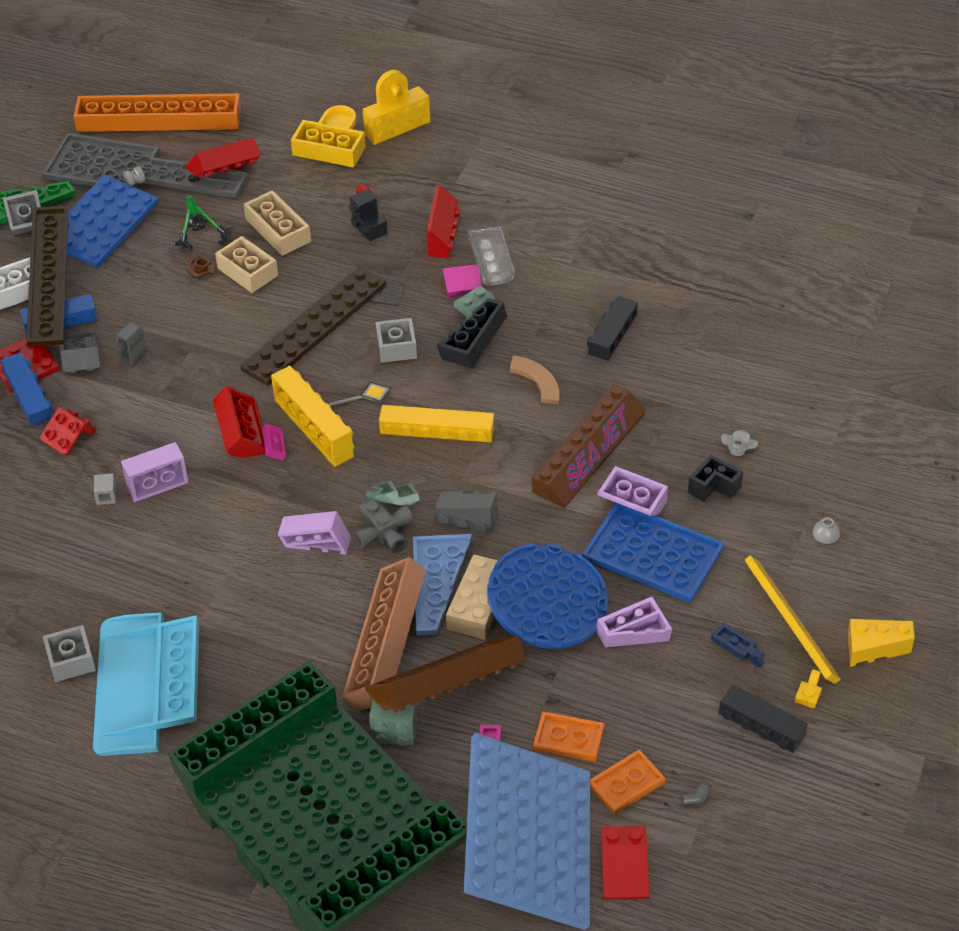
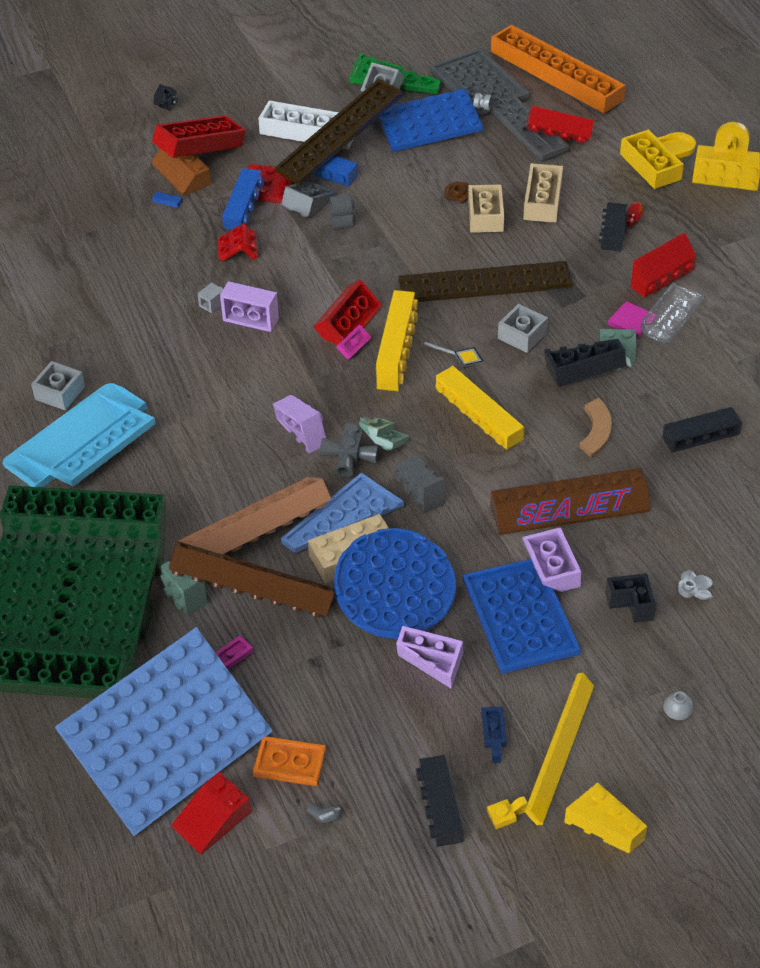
camera: 45 degrees right, 0 degrees up
(197, 220) = (493, 158): black plant -> none
(568, 736) = (292, 695): orange tile -> none

